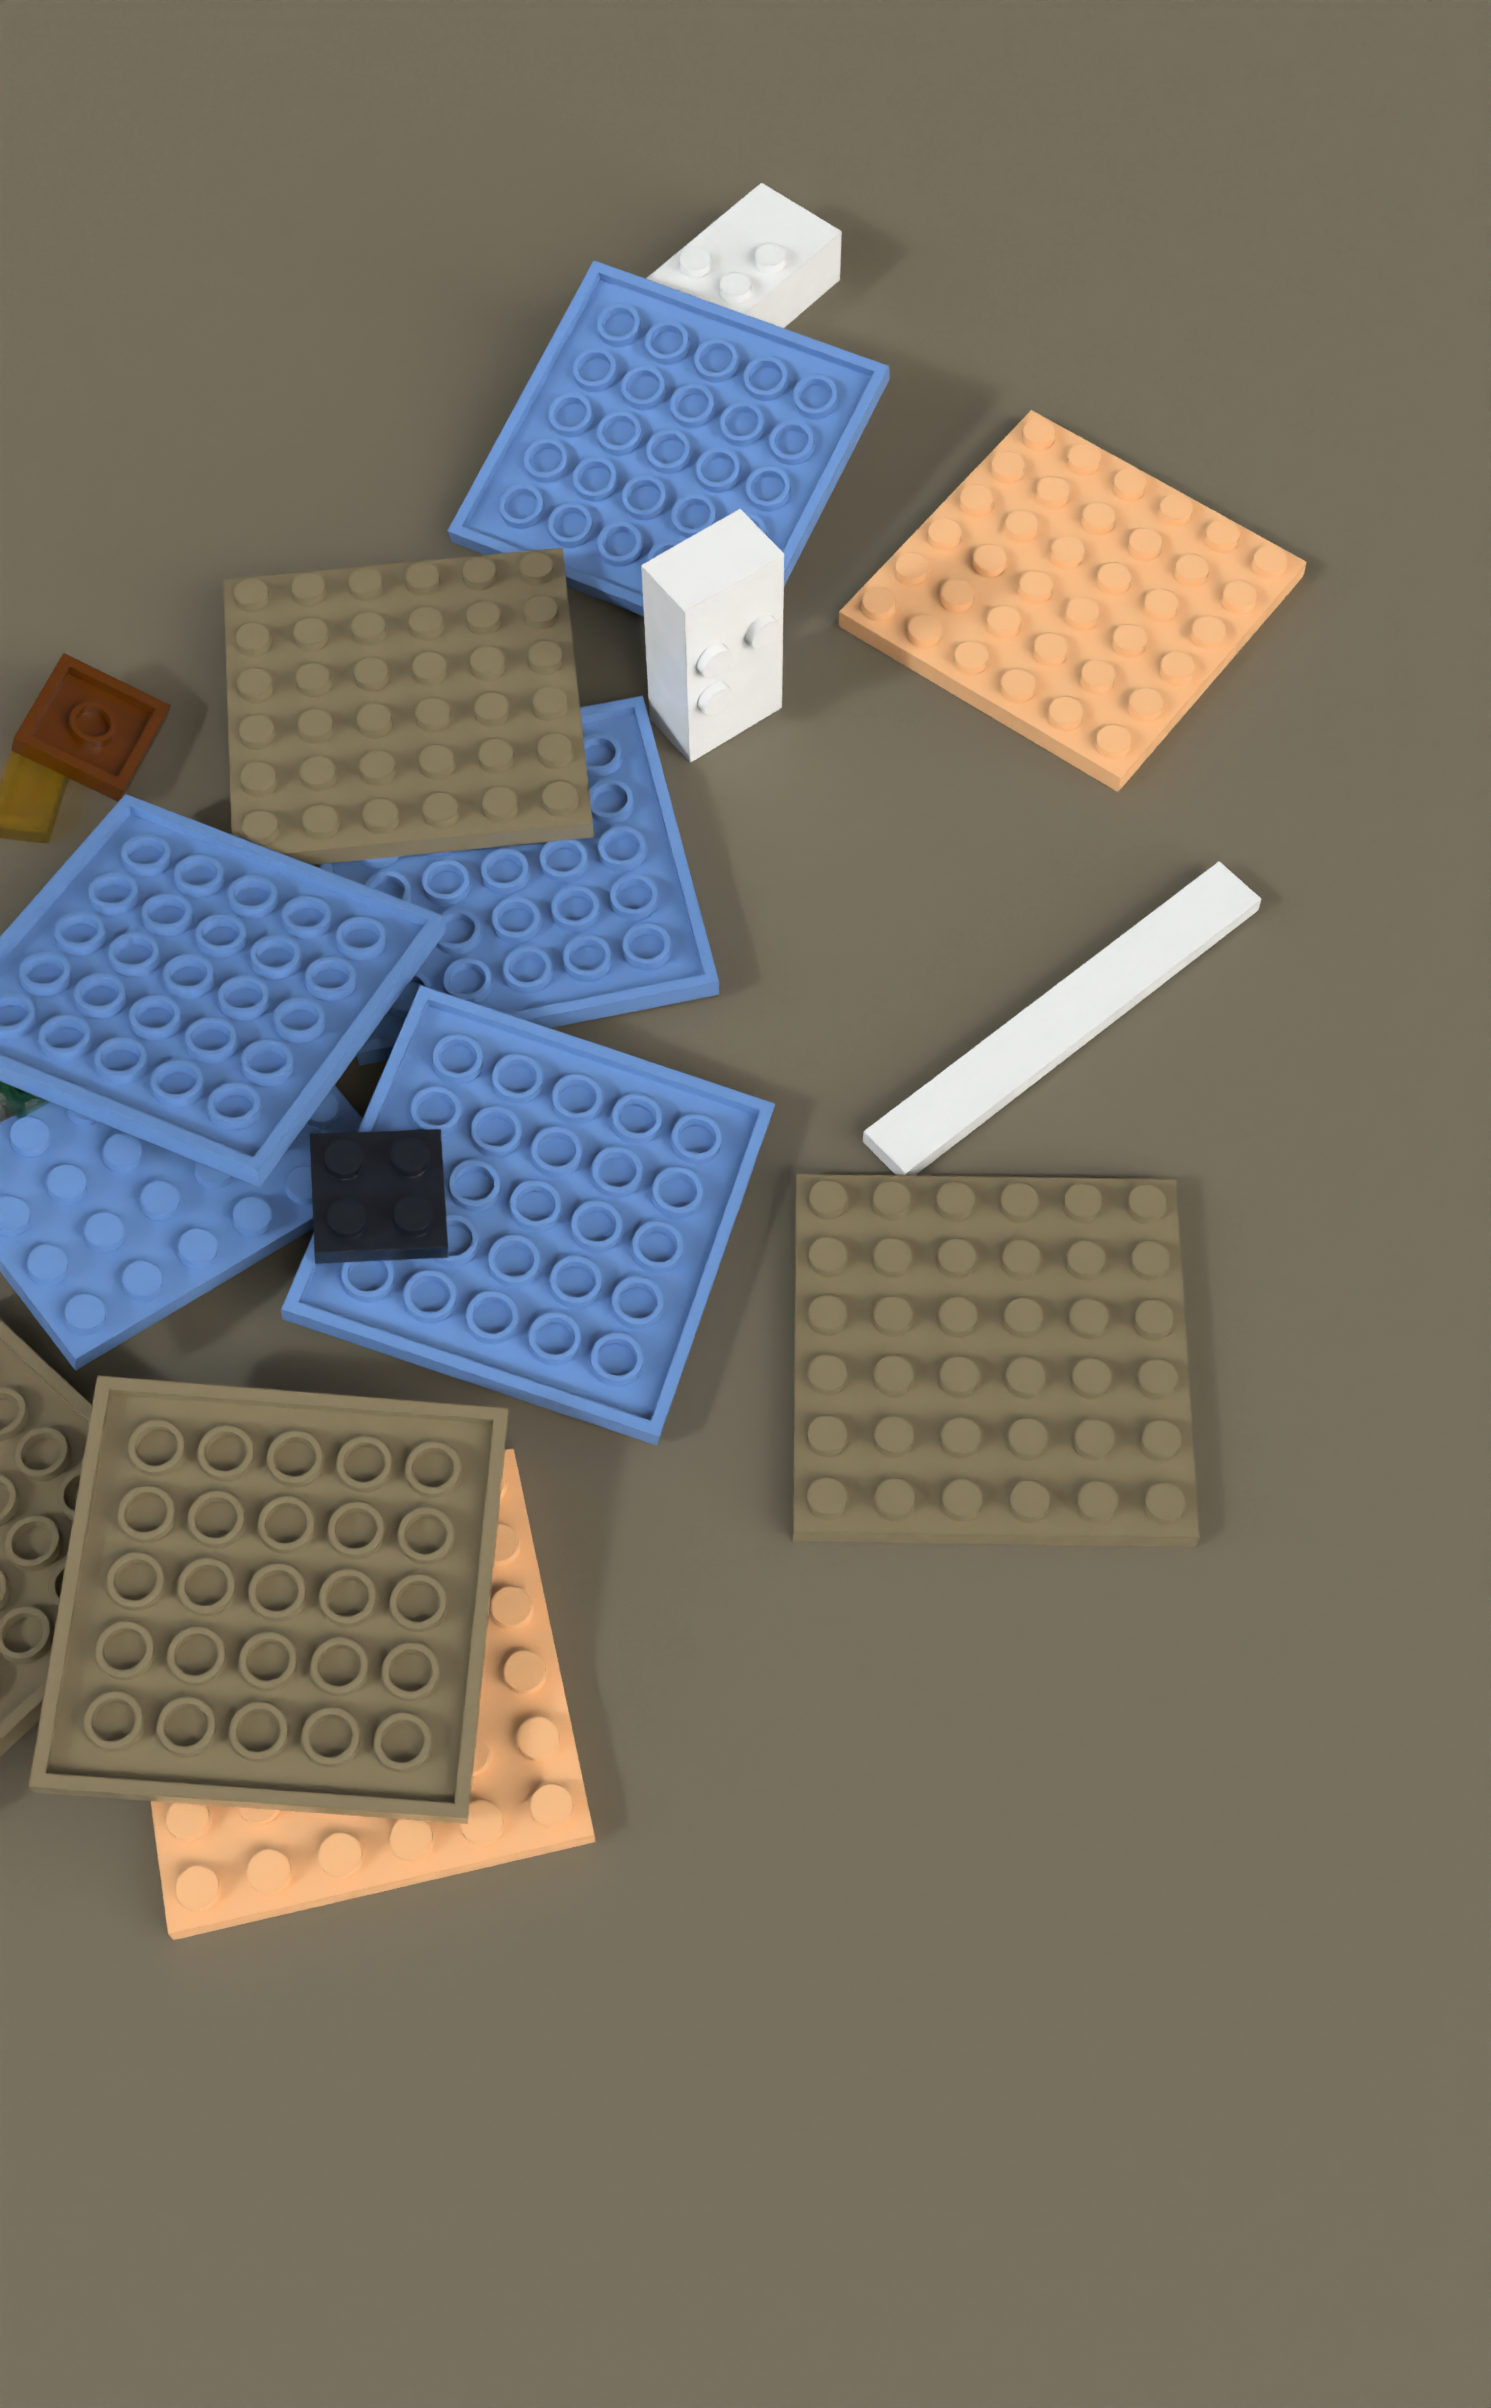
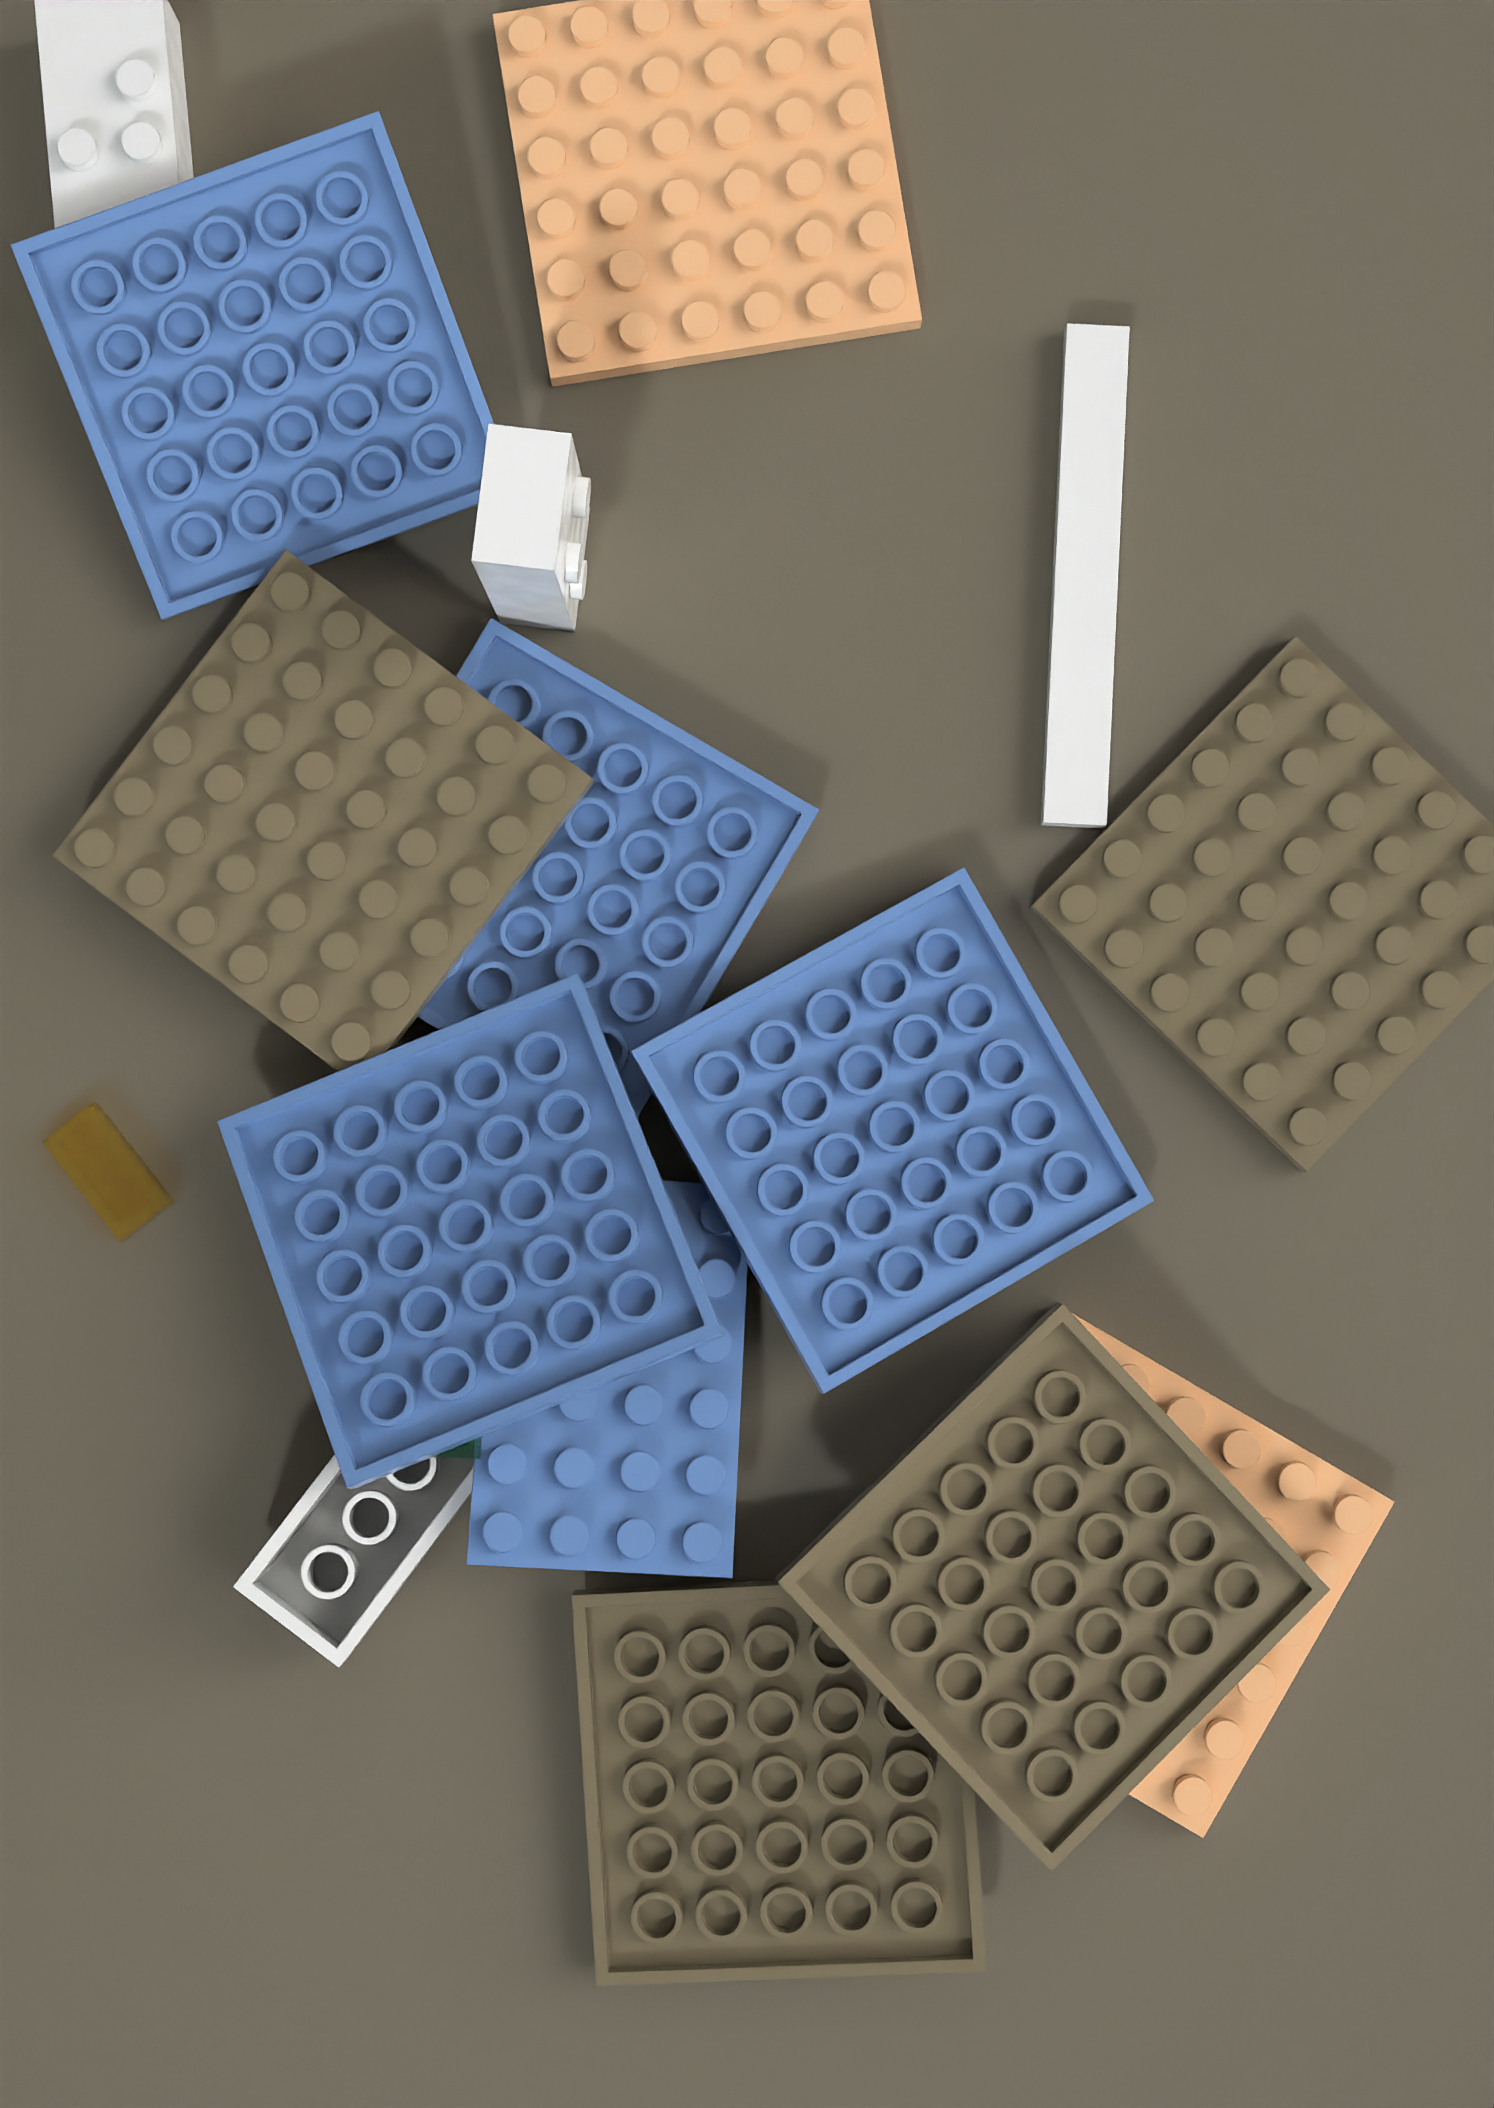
camera: 45 degrees left, 25 degrees up
(91, 727) = (104, 1085): reddish brown plate -> none
(378, 1196) = (797, 1245): black plate -> none

